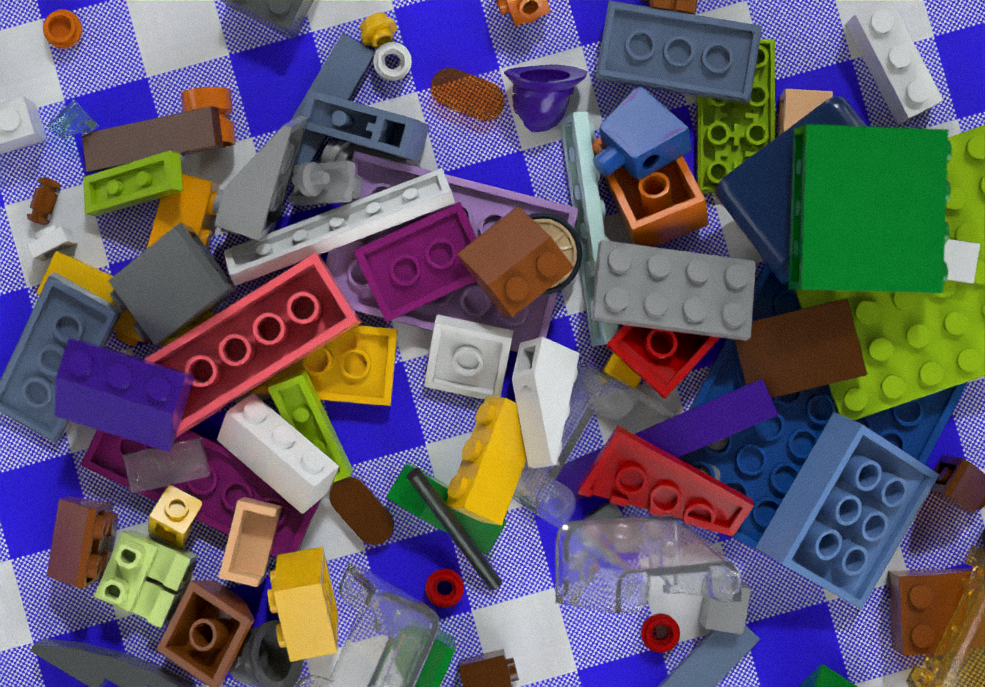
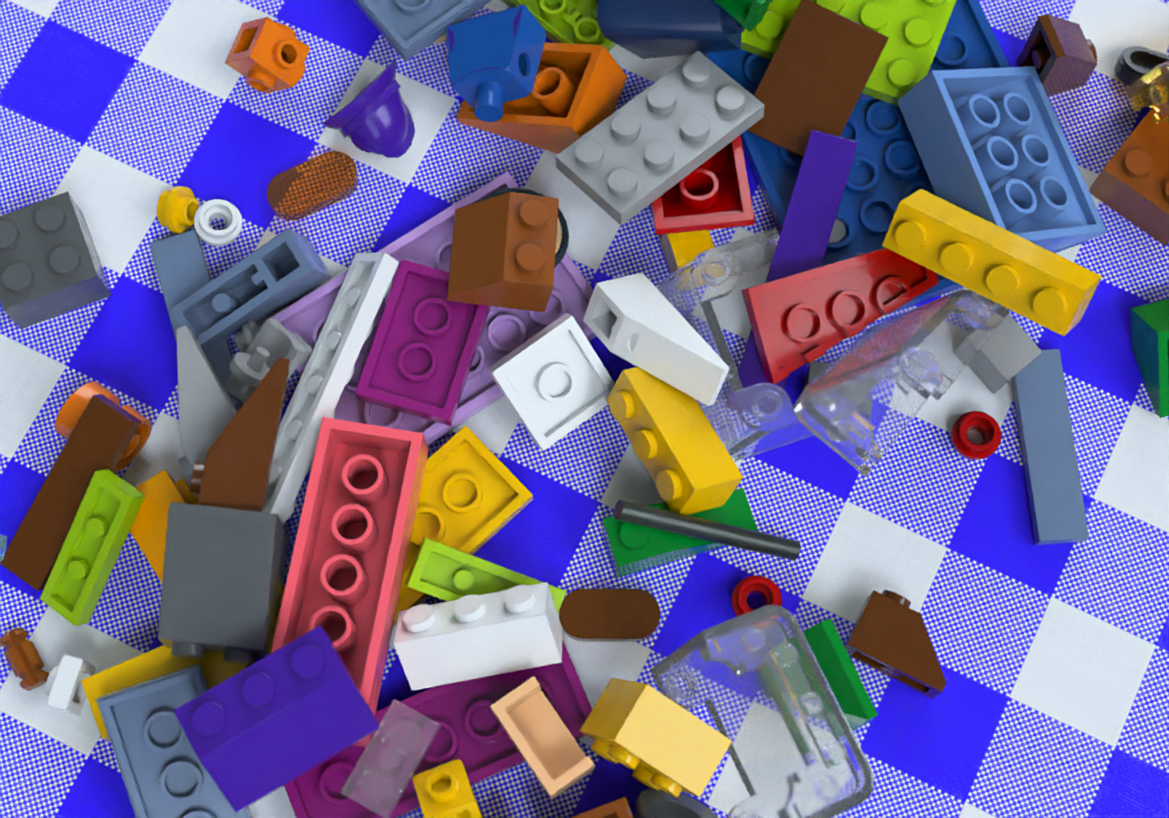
camera: 55 degrees left, 15 degrees down
(250, 230) = (242, 455): none -> reddish brown slope
(583, 181) = (497, 153): light aqua plate -> none
(759, 566) = (991, 261): none -> yellow brick

